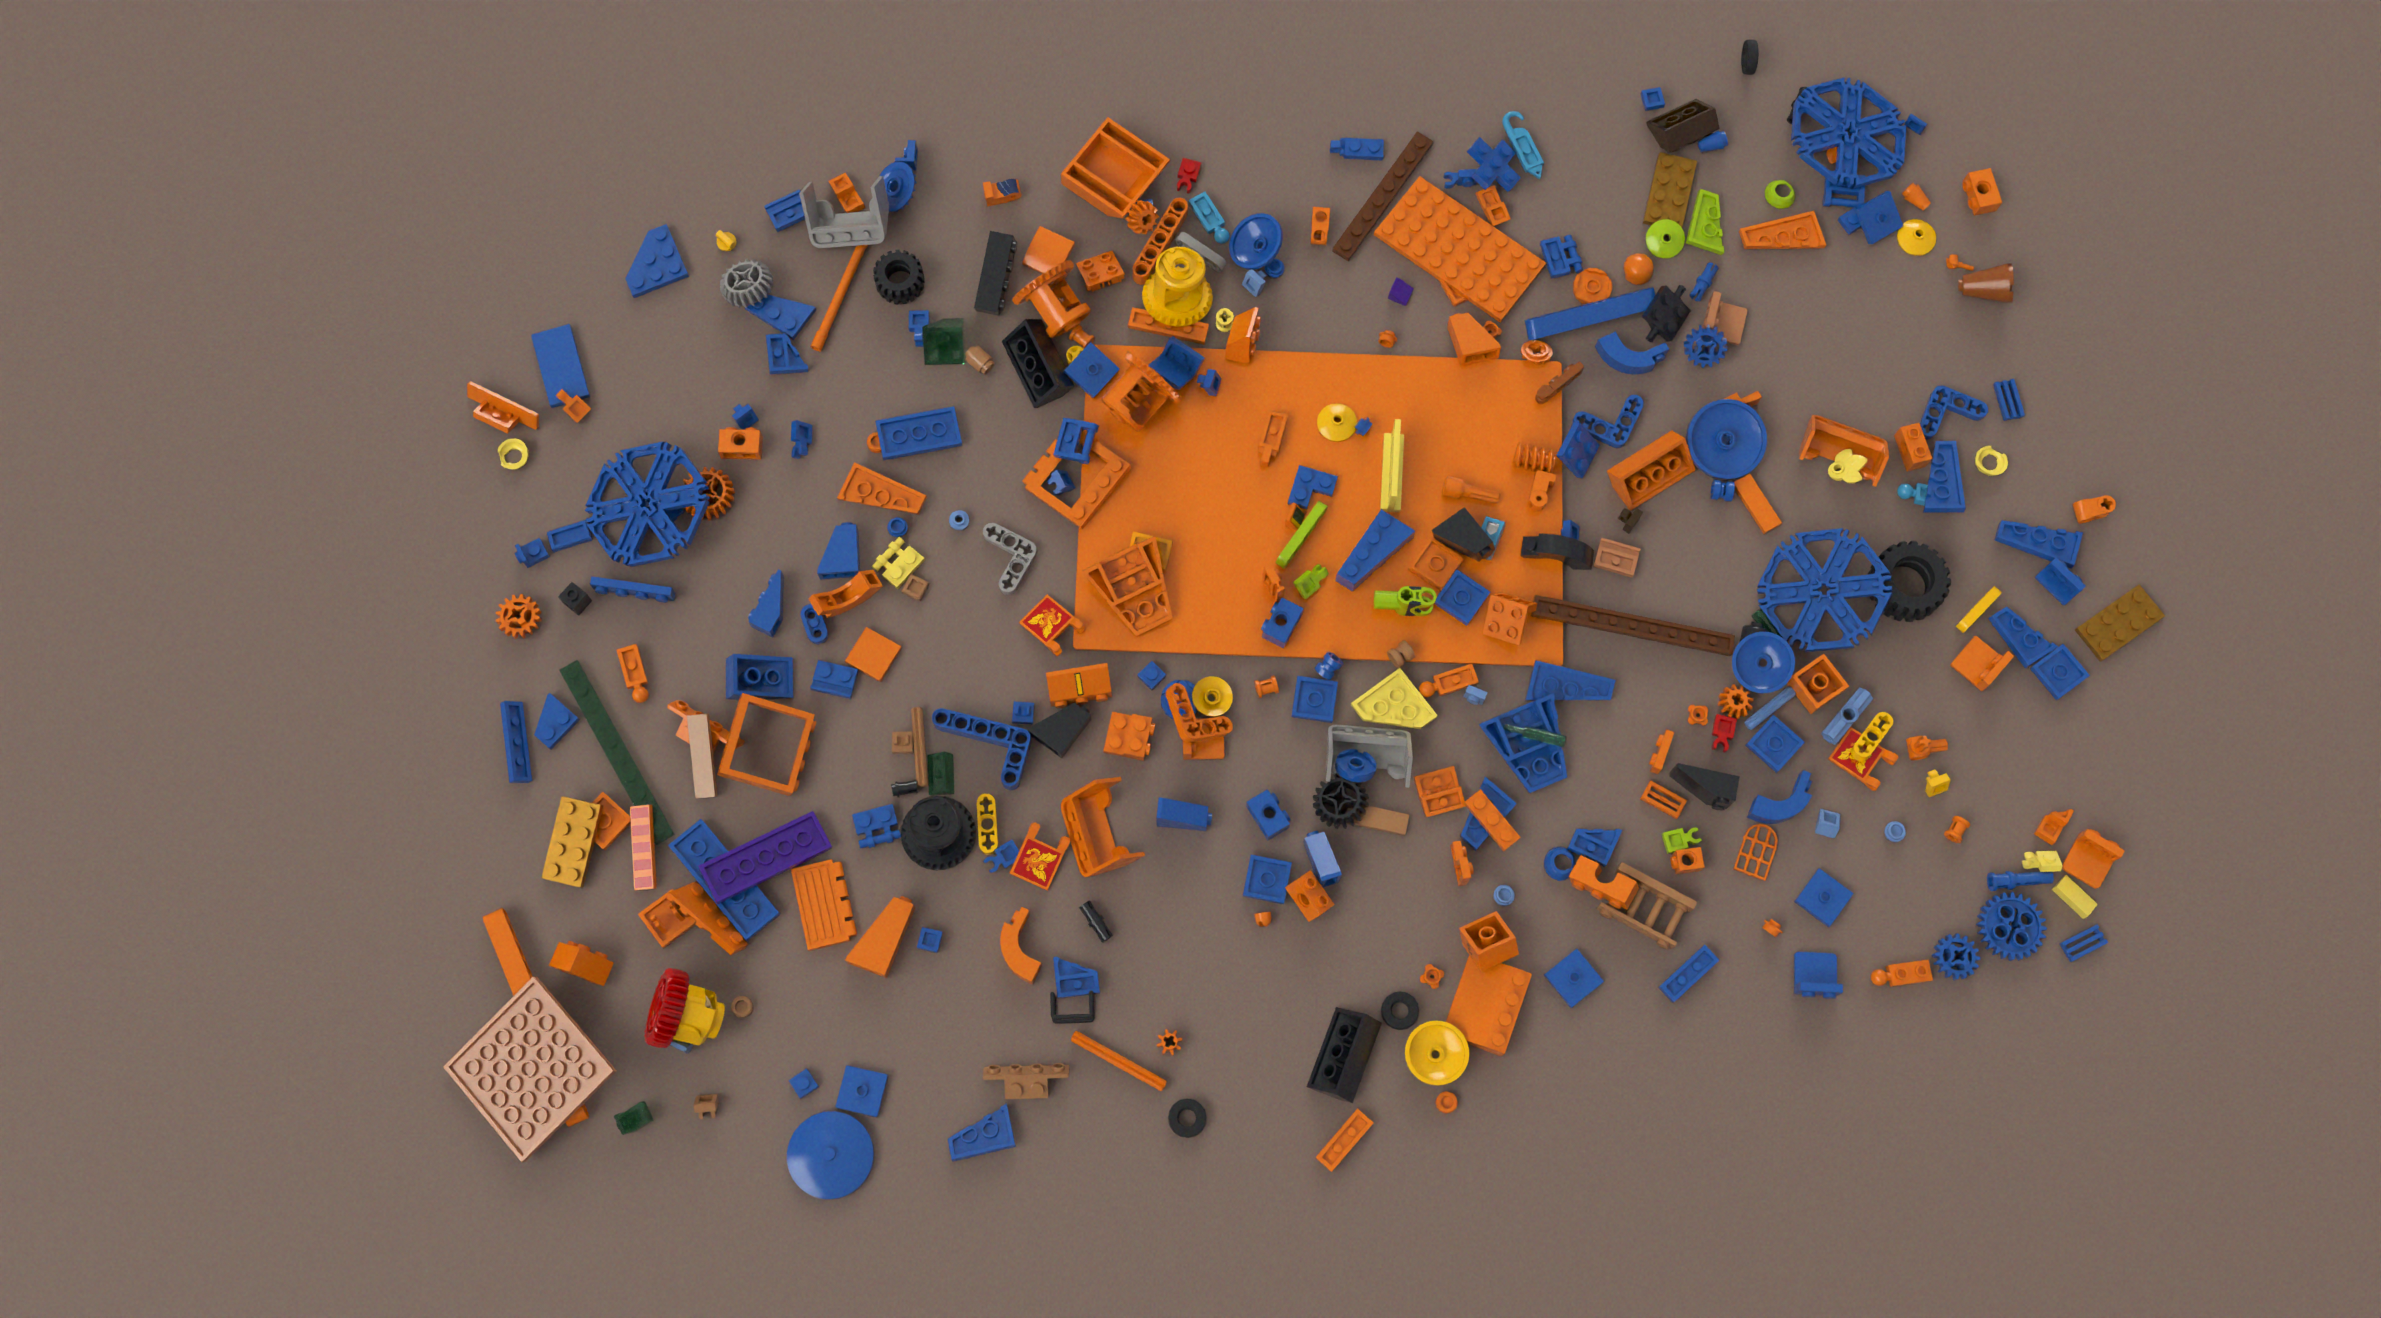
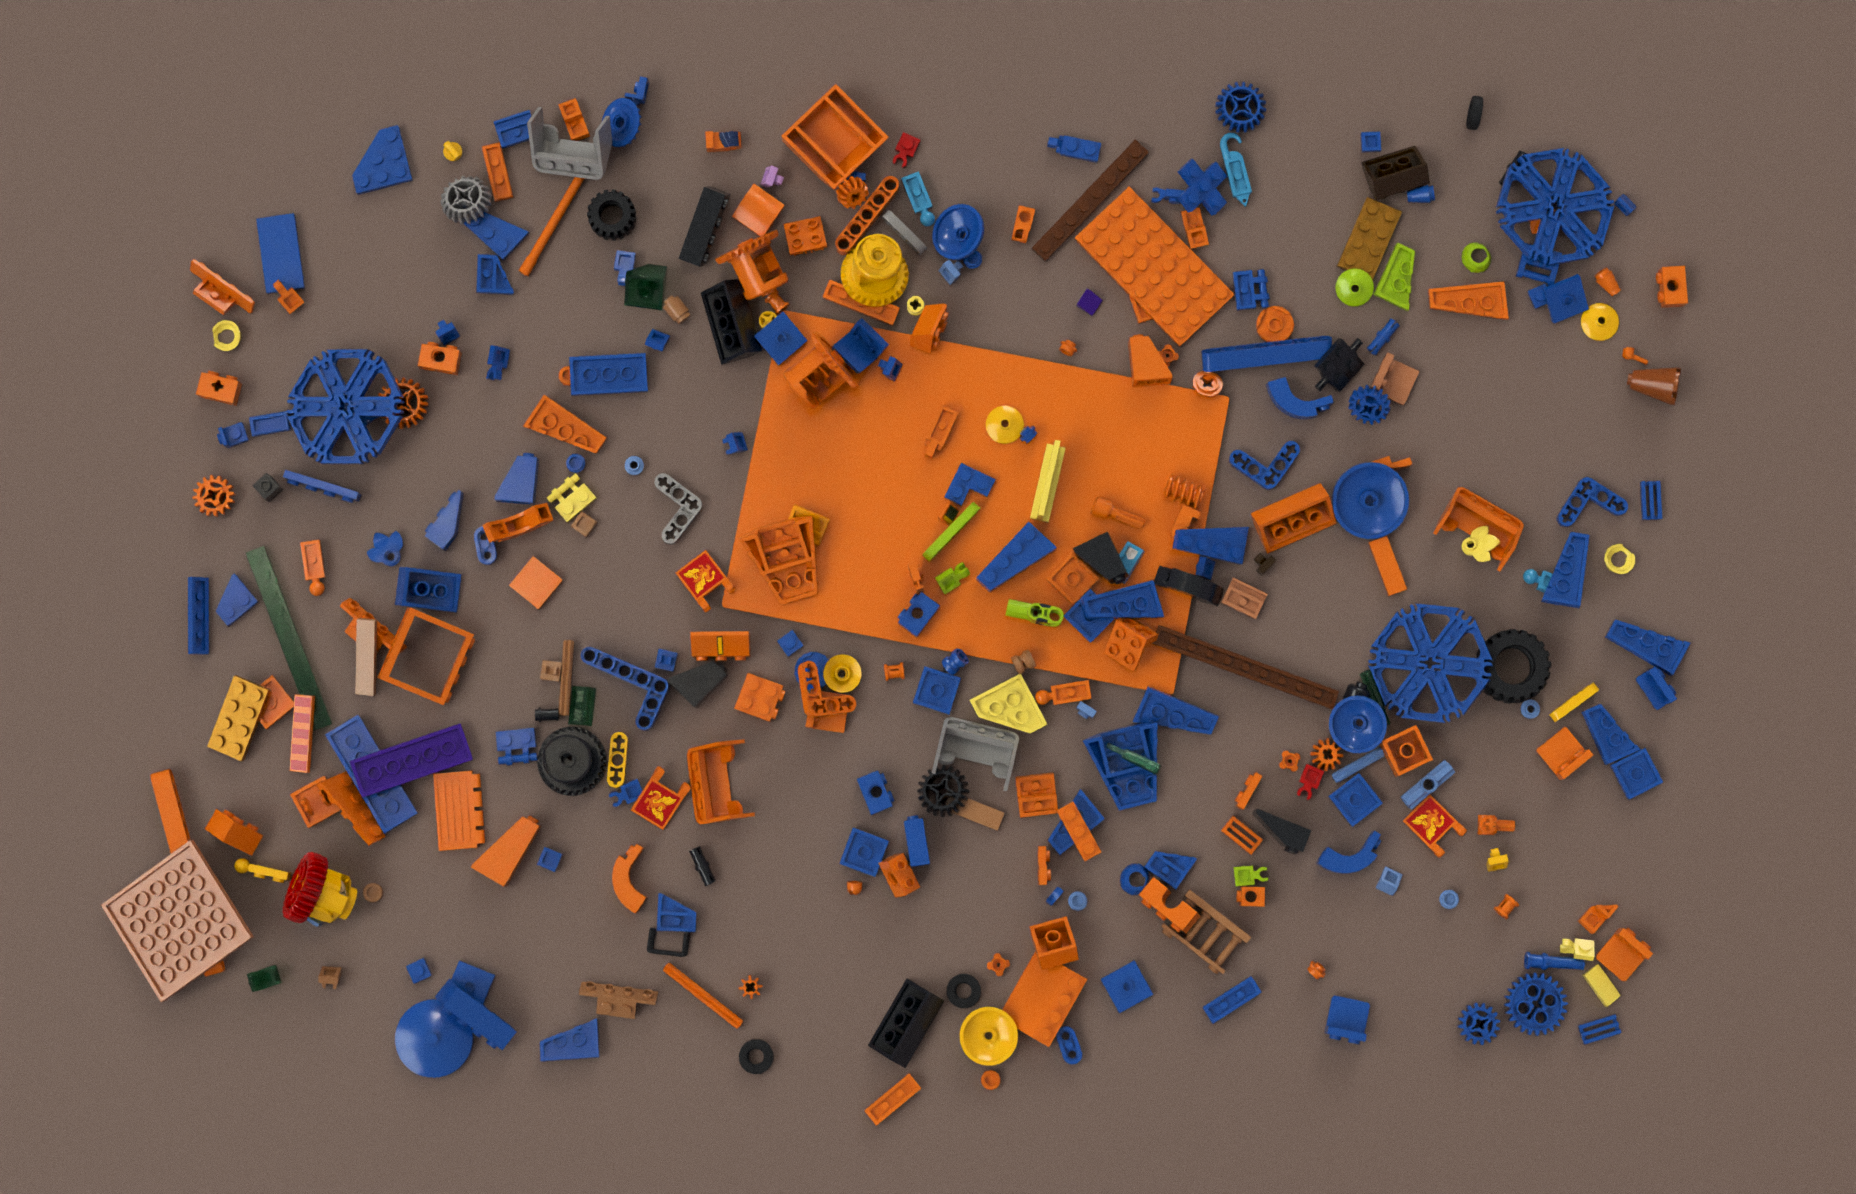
camera: 10 degrees right, 10 degrees up
(519, 513) = (229, 393): none -> orange brick
(616, 1002) = (242, 866): none -> yellow plate
(707, 642) = (384, 547): none -> blue plate
(775, 255) = (497, 172): none -> orange tile
(834, 679) = (497, 601): blue plate -> none
(872, 1118) = (475, 1015): none -> blue wedge
(964, 392) = (657, 340): none -> blue plate
(1056, 219) = (770, 177): none -> lavender tile
(1069, 440) = (748, 405): blue plate -> none
(1095, 493) = (767, 458): orange hinge -> none
(1182, 815) = (796, 781): blue slope -> none
(1360, 773) = (960, 769): blue tile -> none
(1478, 893) = (1054, 896): none -> blue tile
(1499, 576) = (1128, 602): none -> blue wing
(1510, 77) = (1246, 112): none -> blue gear
(1526, 1049) = (1068, 1045): none -> blue plate
(1558, 383) = (1221, 420): dark orange hinge -> none
(1578, 450) = (1227, 489): blue plate -> none
(1578, 505) = (1215, 543): none -> blue wing
(1638, 269) = (1322, 313): orange hair -> none
(1722, 490) = (1352, 548): blue wheel -> none
(1750, 856) = (1311, 899): orange window -> none
(1823, 897) = (1370, 949): blue plate -> none
(1871, 745) = (1438, 807): yellow beam -> none
(1903, 974) = (1427, 1031): orange plate -> none
(1913, 447) = (1547, 534): orange brick -> none
(1930, 627) = (1524, 711): none -> medium blue plate
(2094, 508) = (1703, 621): orange piece -> none
(2119, 623) = (1705, 735): pearl gold plate -> none

